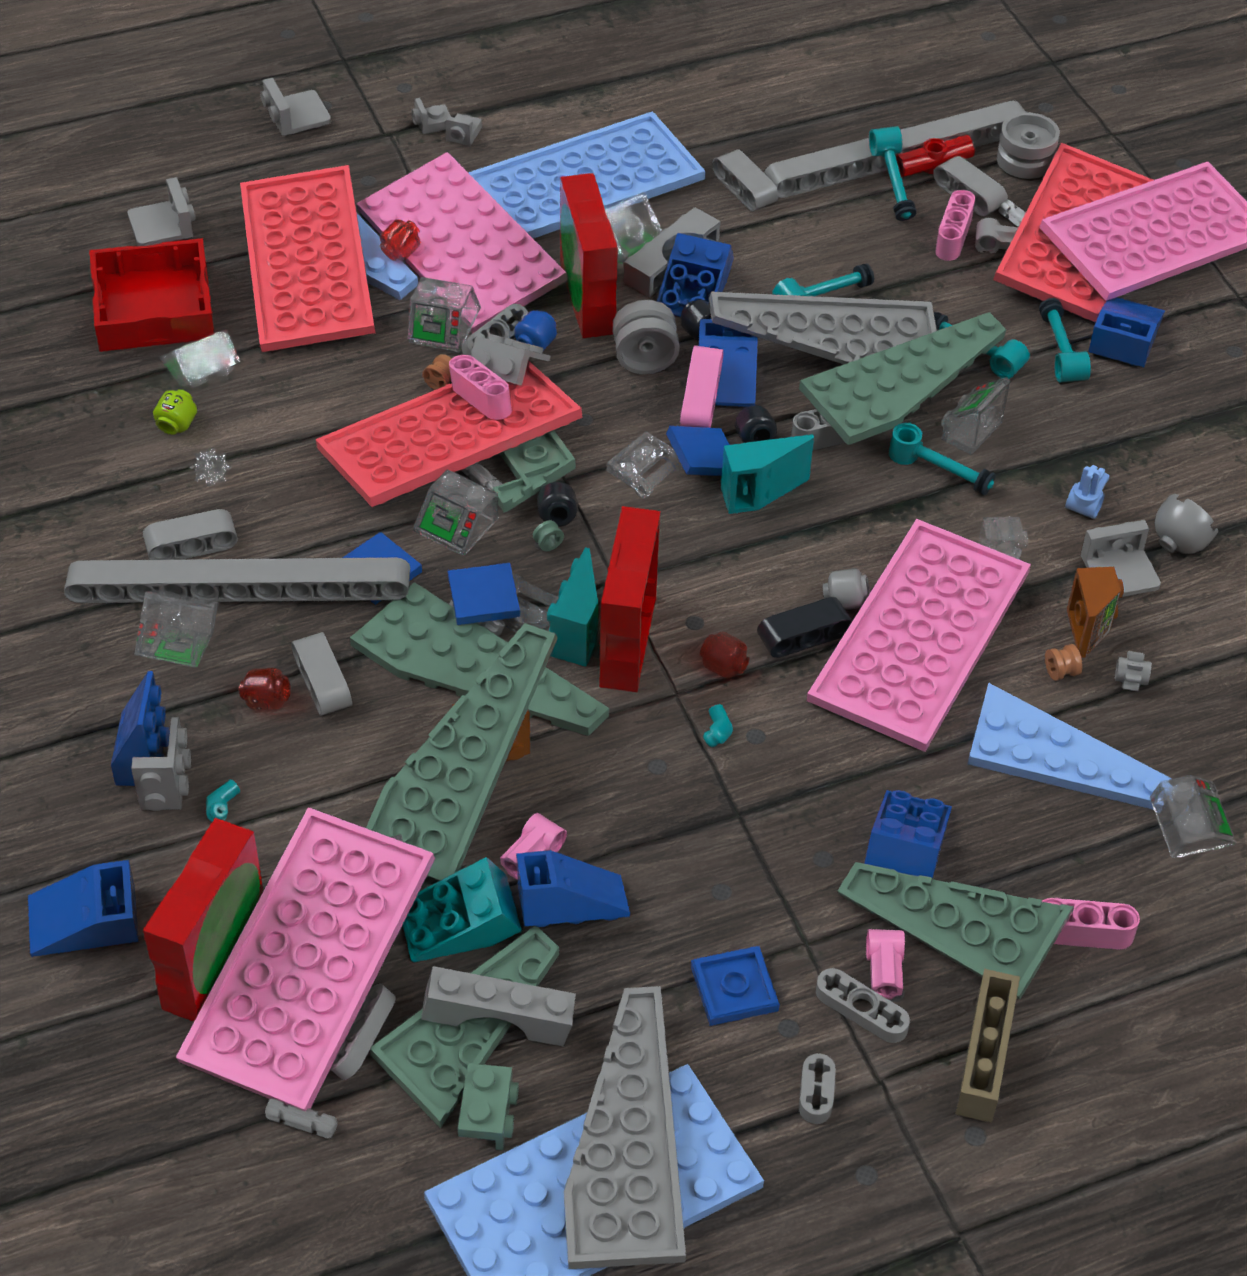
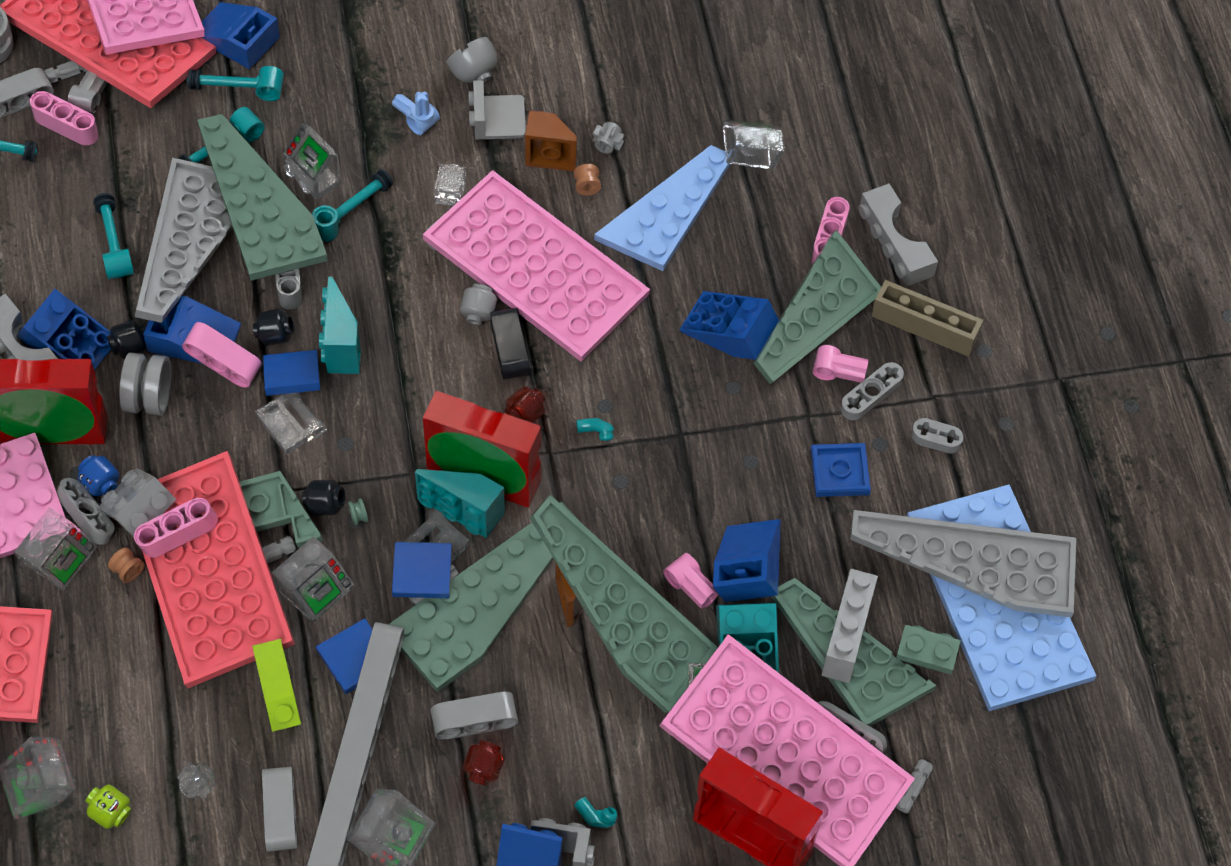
camera: 80 degrees left, 10 degrees up
(315, 500) = (276, 685): none -> lime slope
(1146, 977) = (911, 259): none -> light grey arch

